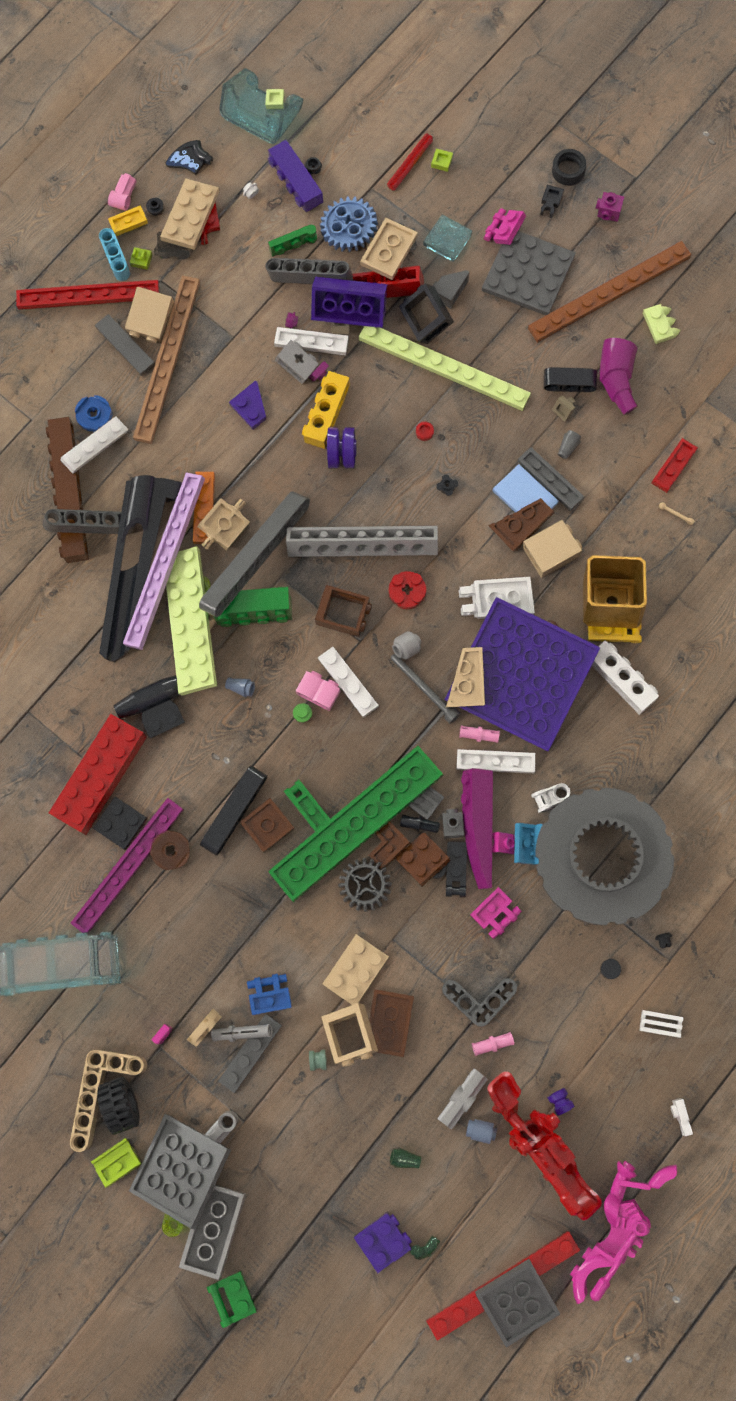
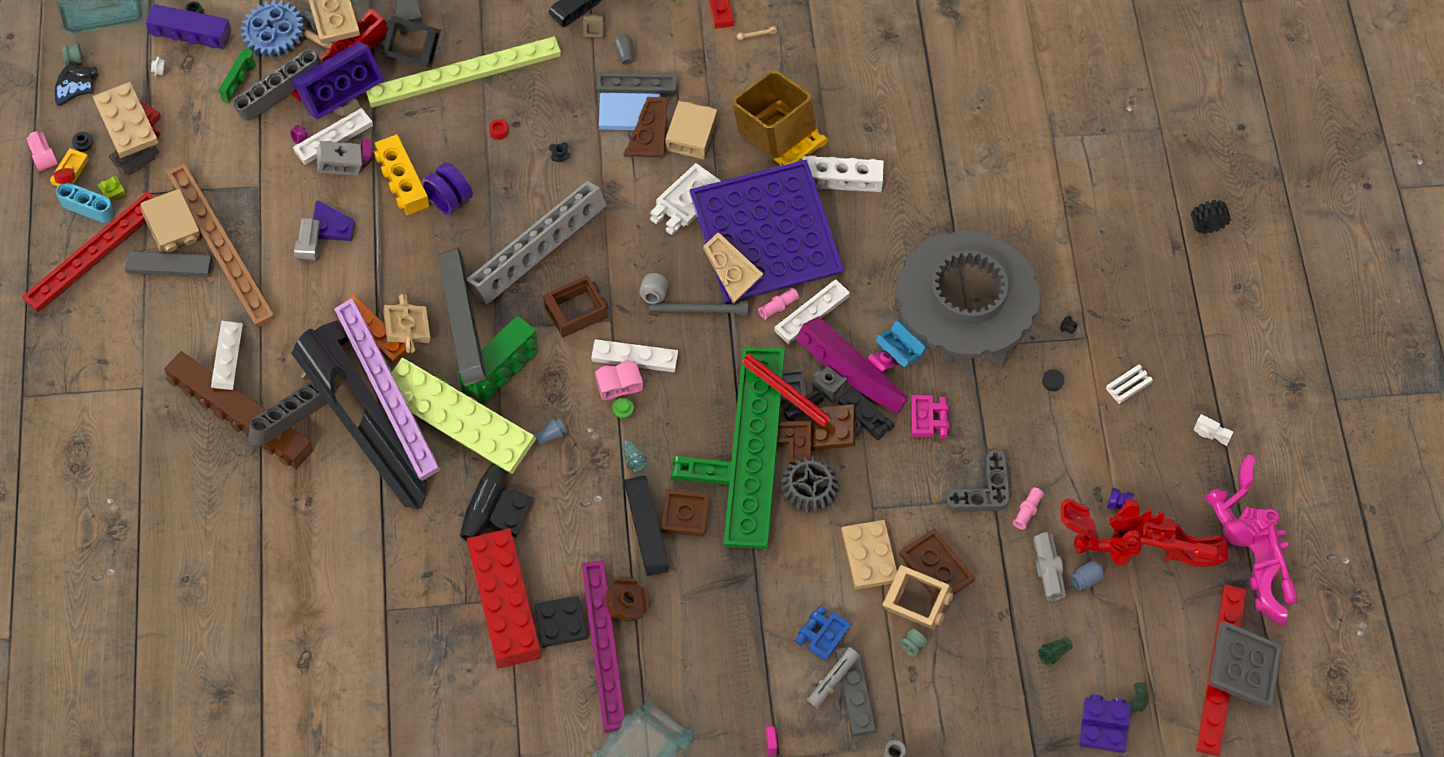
camera: 55 degrees left, 15 degrees down
(83, 415) = (200, 346): blue plate -> none
(115, 224) = (64, 176): none -> red tile
(204, 1027) = (799, 699): tan plate -> none
(206, 134) = (72, 54): none -> sand green wheel
(218, 408) = (307, 245): none -> light grey piece
(273, 756) = (634, 457): none -> clear light blue cone
(405, 579) = (610, 261): red plate -> none
(411, 804) = (786, 390): none -> red axle
(549, 797) = (880, 301): white piece -> none

